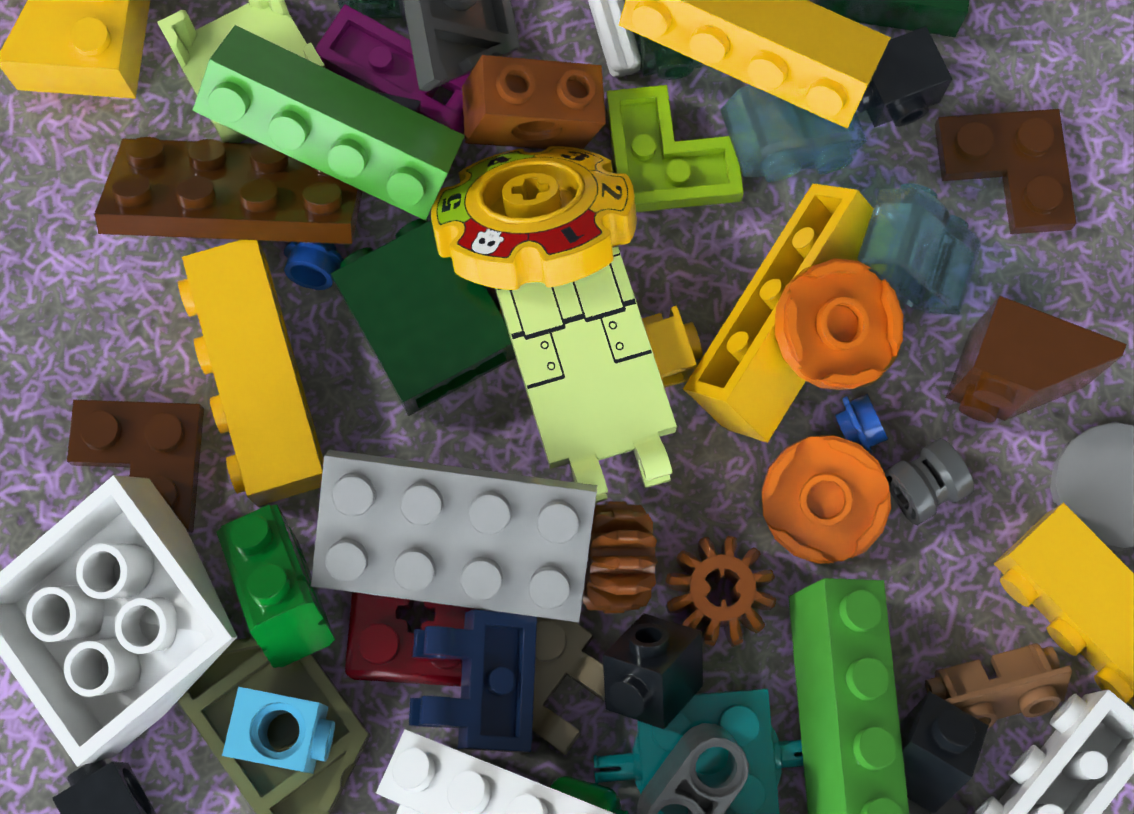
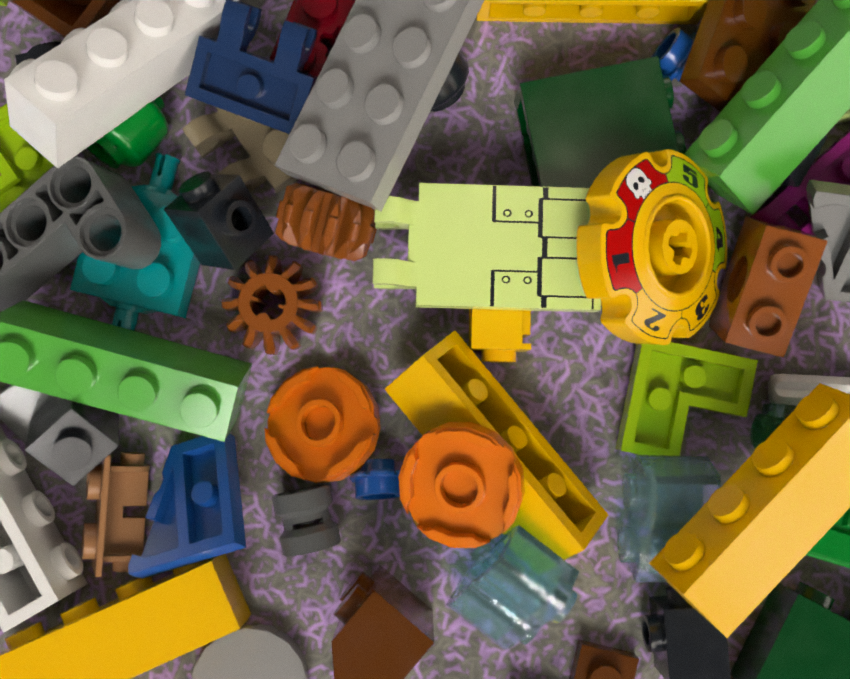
camera: 105 degrees right, 10 degrees up
(963, 598) = (195, 509): none -> blue wing

